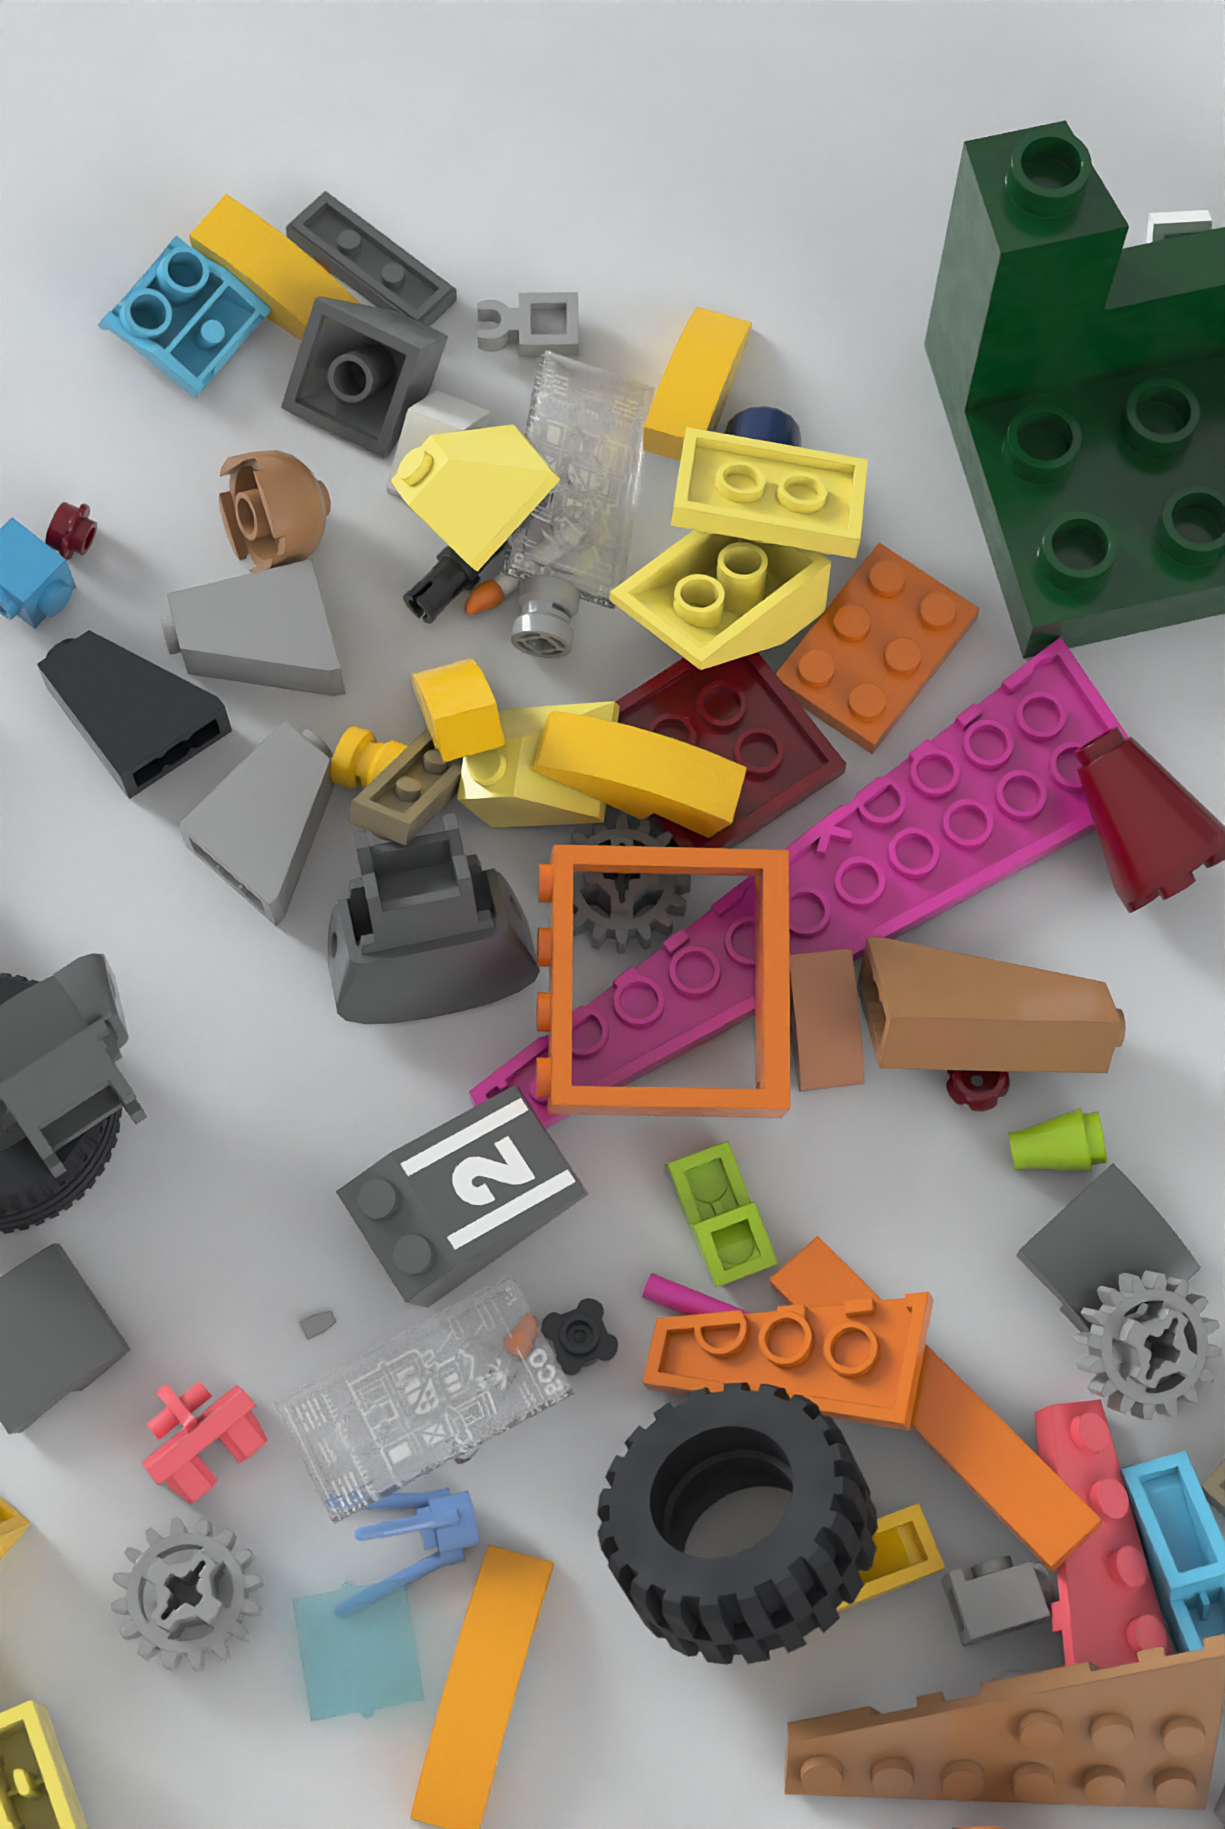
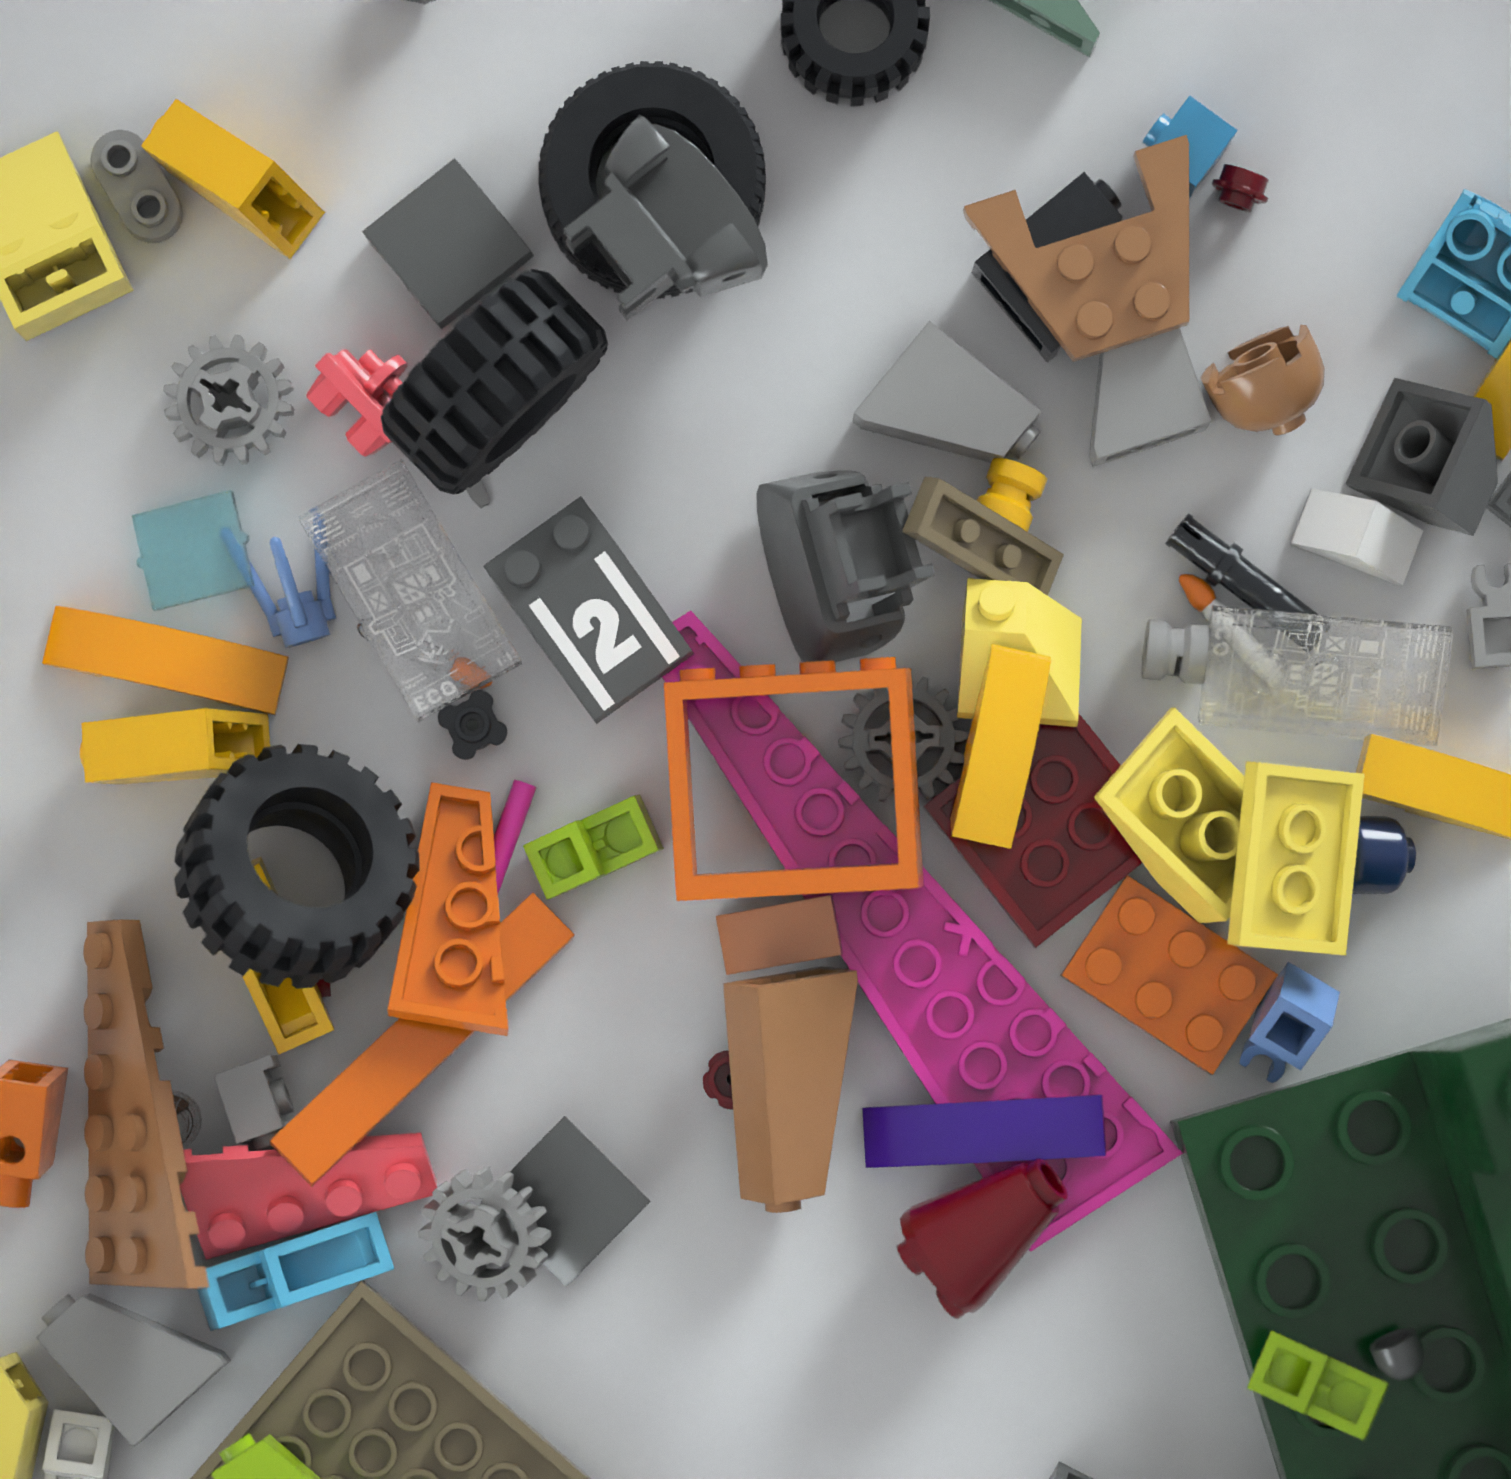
camera: 85 degrees right, 15 degrees up
(155, 639) = (1110, 281): none -> medium nougat wing
(202, 1264) = (493, 381): none -> black tyre
(458, 709) = (1058, 569): yellow slope -> none
(475, 487) = (1292, 573): light yellow slope -> none
(587, 1678) = (170, 745): none -> yellow slope
(928, 524) = (1291, 1021): none -> medium blue brick
(1039, 827) = (984, 1131): none -> dark purple slope
(1061, 1143) = (672, 1156): lime cone -> none

